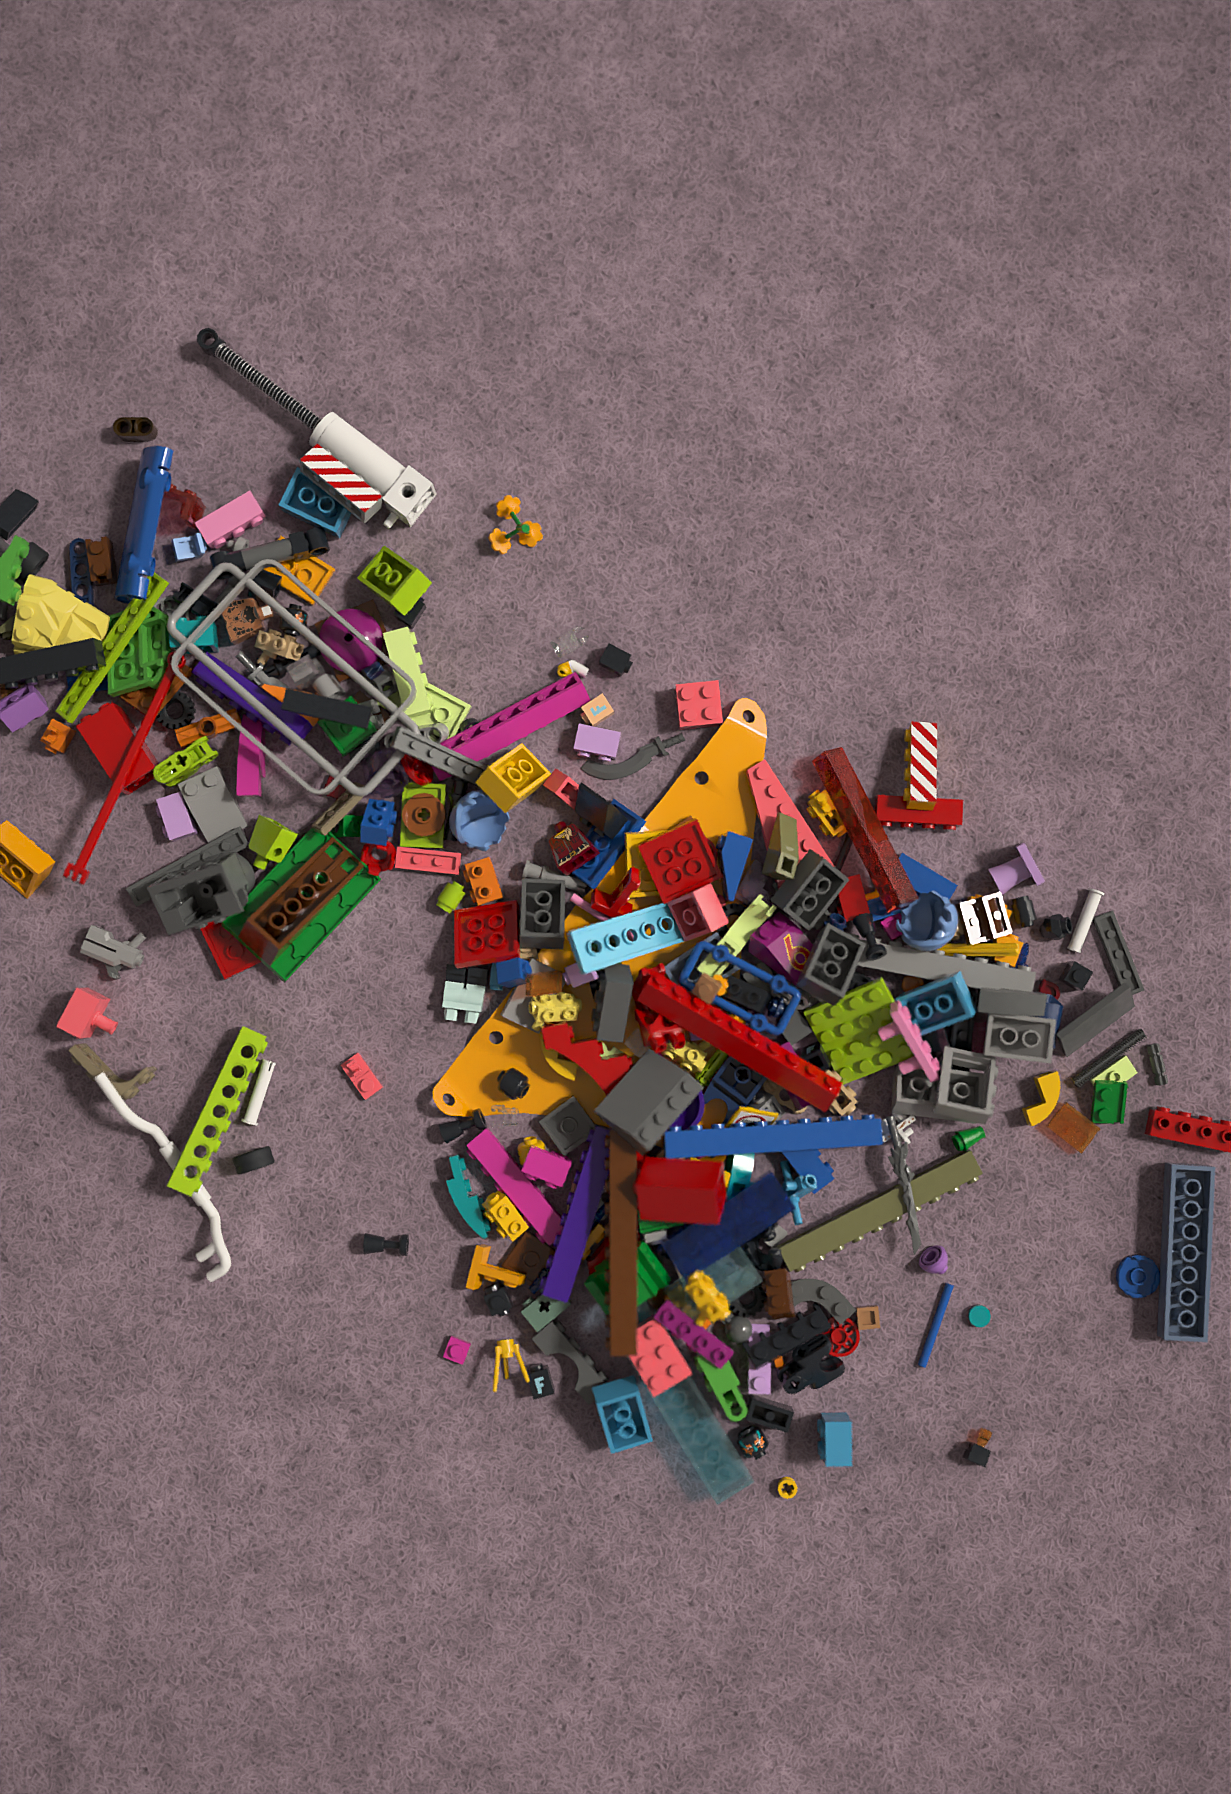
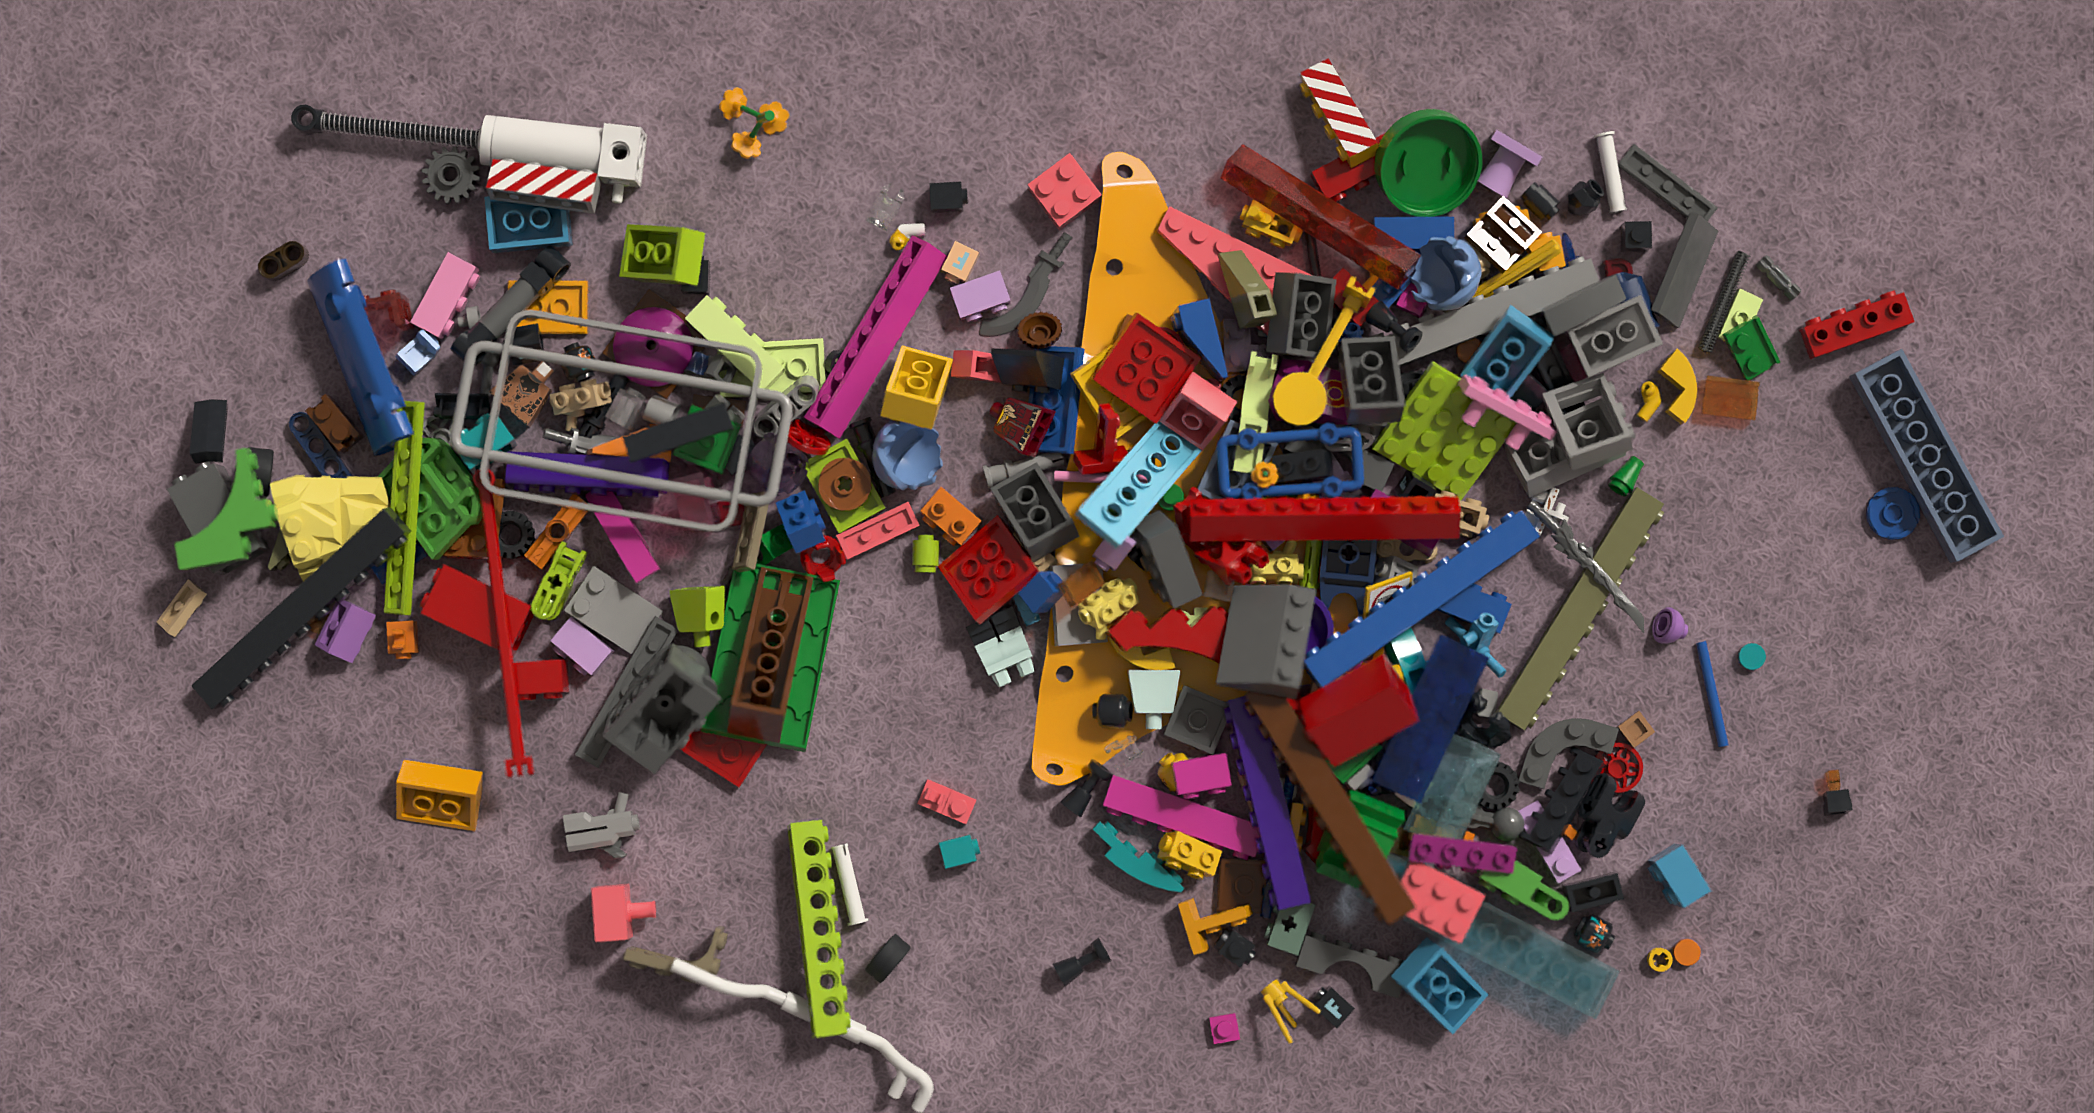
camera: 30 degrees left, 0 degrees up
(134, 821) = (541, 677): none -> red brick
(283, 429) = (461, 185): none -> dark grey gear
(309, 770) = (697, 508): none -> clear pink brick
(348, 1115) = (959, 850): none -> teal brick
(437, 755) = (825, 412): dark grey plate -> none
(548, 1089) = (1153, 693): none -> light aqua torso
(623, 790) = (1039, 330): none -> reddish brown hat
(643, 961) = (1171, 498): none -> green wheel
(706, 988) = (1256, 484): medium nougat plate -> none
(708, 1299) = (1457, 807): yellow brick -> none
(775, 946) = (1301, 395): none -> yellow piece
(776, 1007) = (1341, 460): dark blue plate -> none
(779, 1294) = (1527, 759): reddish brown brick -> none
(809, 1493) = (1686, 952): none -> orange tile
(962, 837) = (1428, 163): none -> green brick
(1017, 1095) = (1651, 400): none -> yellow arm

